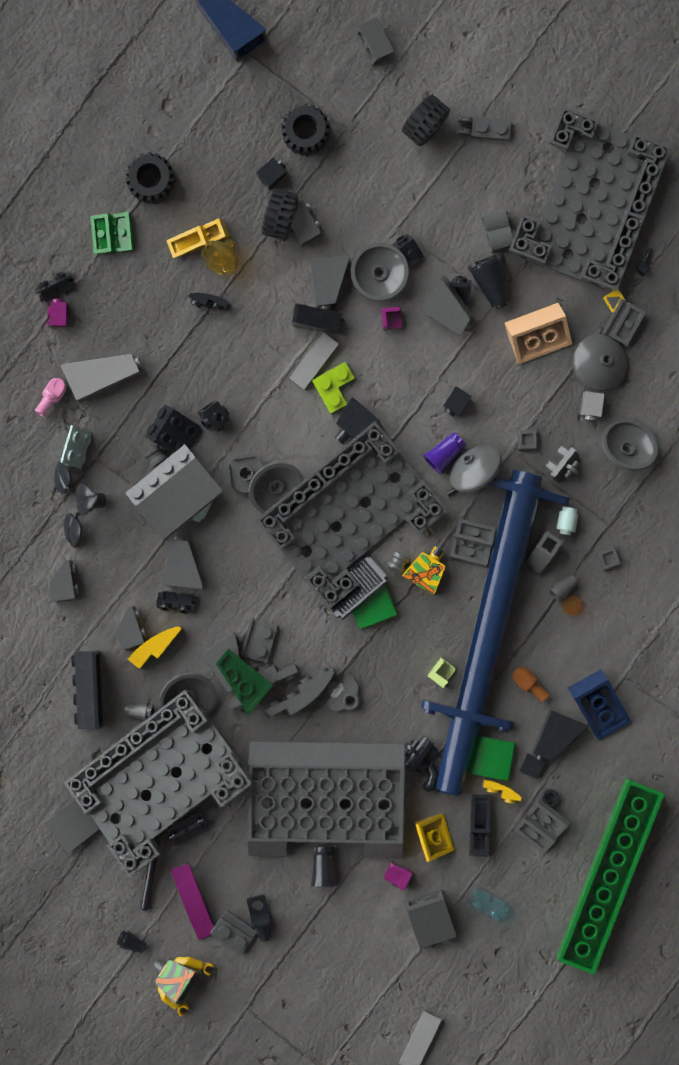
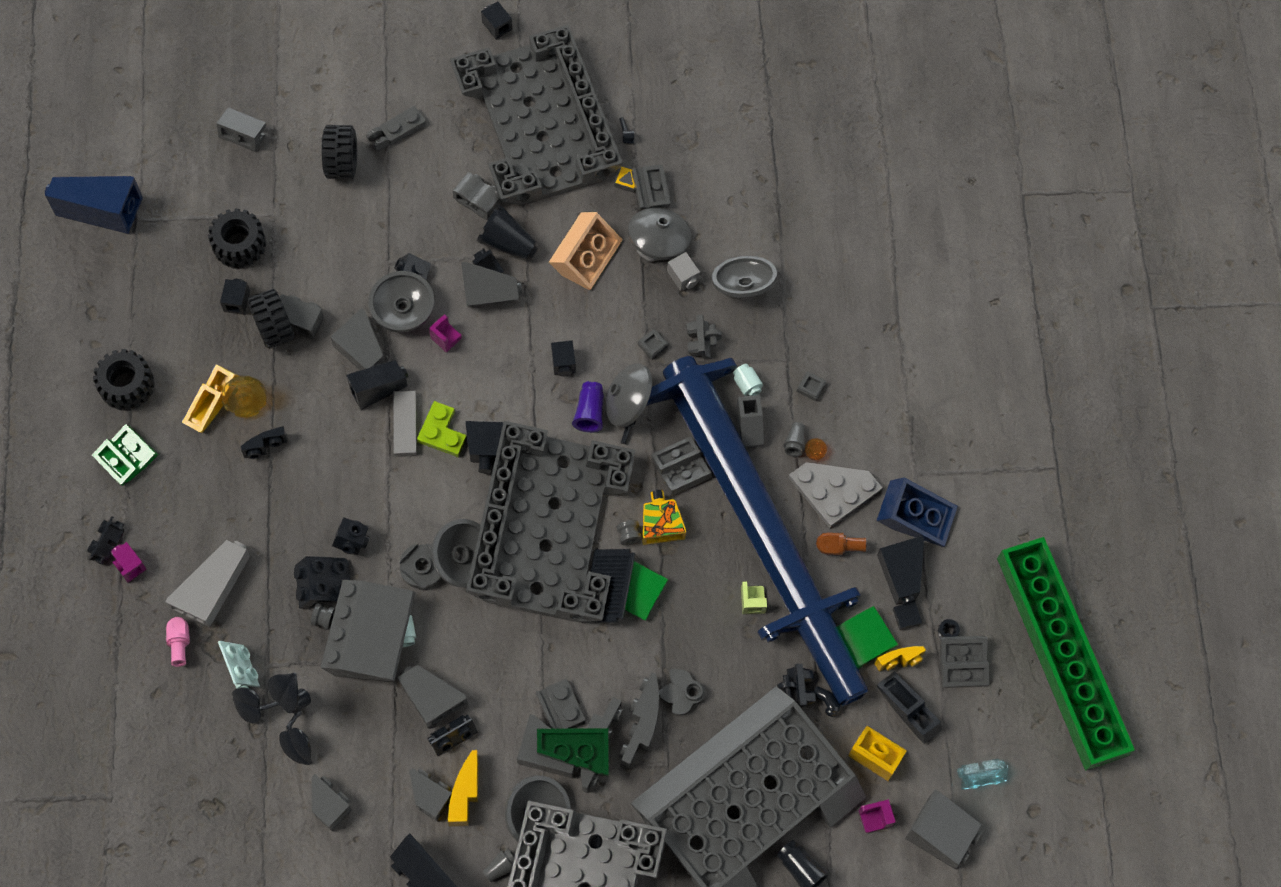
camera: 45 degrees left, 20 degrees down
(560, 643) = (834, 490): none -> light grey plate
(625, 96) = (496, 20): none -> black brick

